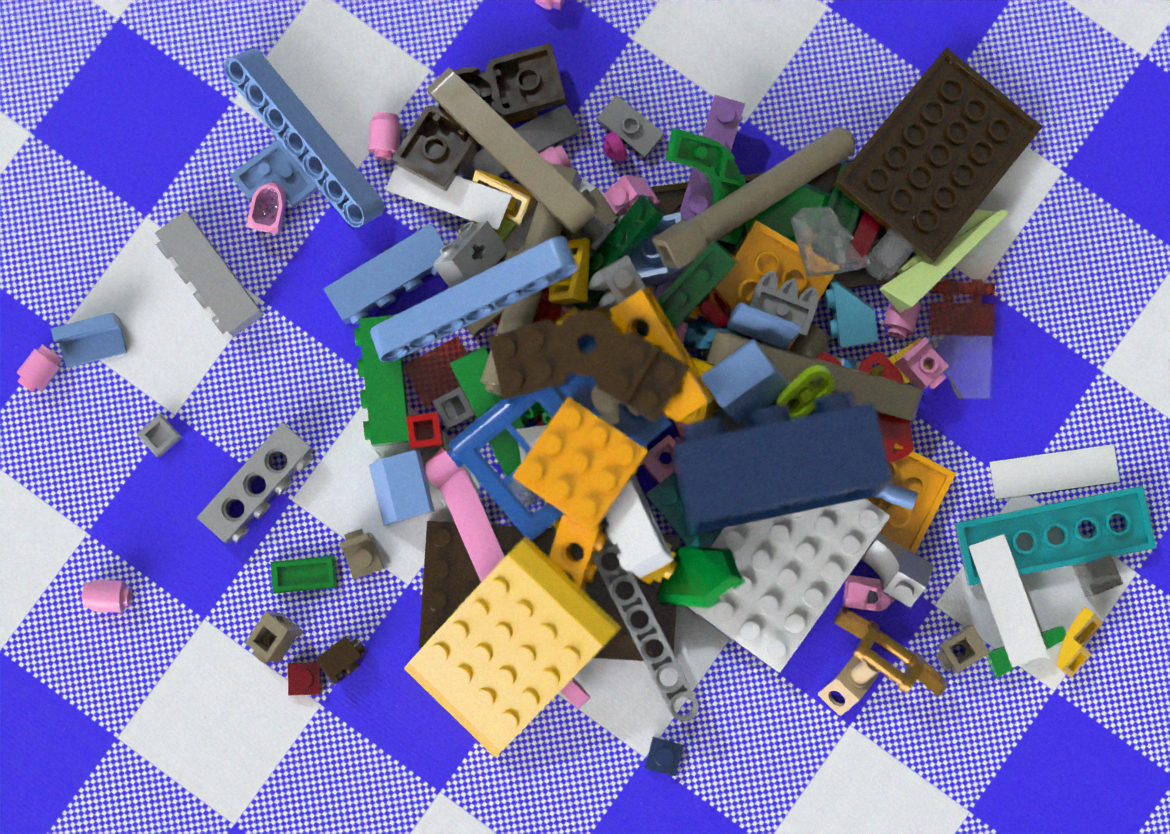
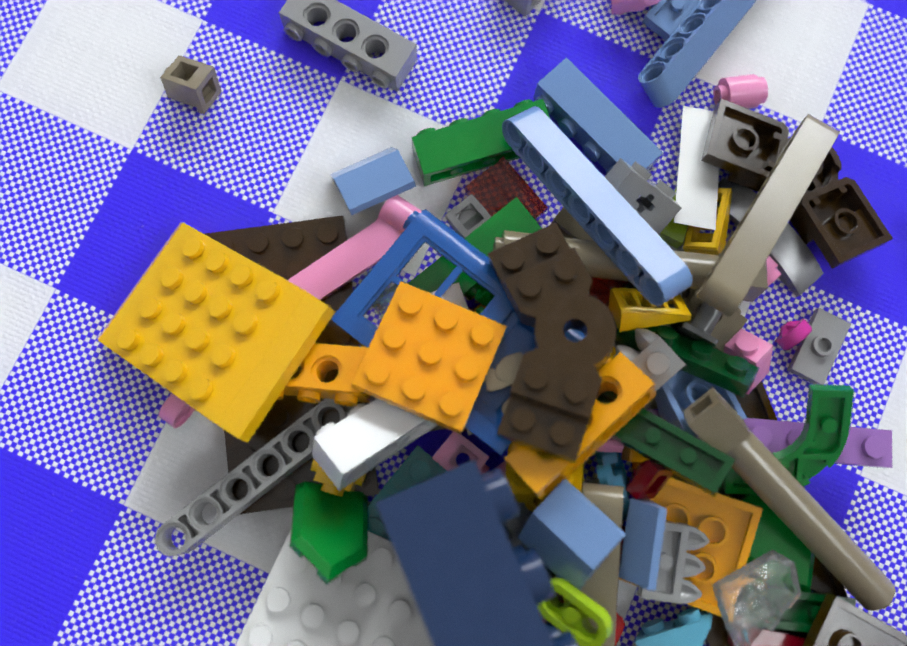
camera: 70 degrees right, 5 degrees down
(303, 574) = (264, 105): green tile -> none
(304, 679) = (155, 126): dark red plate -> none
(342, 658) = (178, 155): dark brown brick -> none
(361, 553) = (296, 156): dark tan bracket -> none
(425, 431) = (437, 190): red brick -> none
(664, 756) = (125, 526): dark blue plate -> none
(812, 344) = (631, 606): dark tan brick -> none

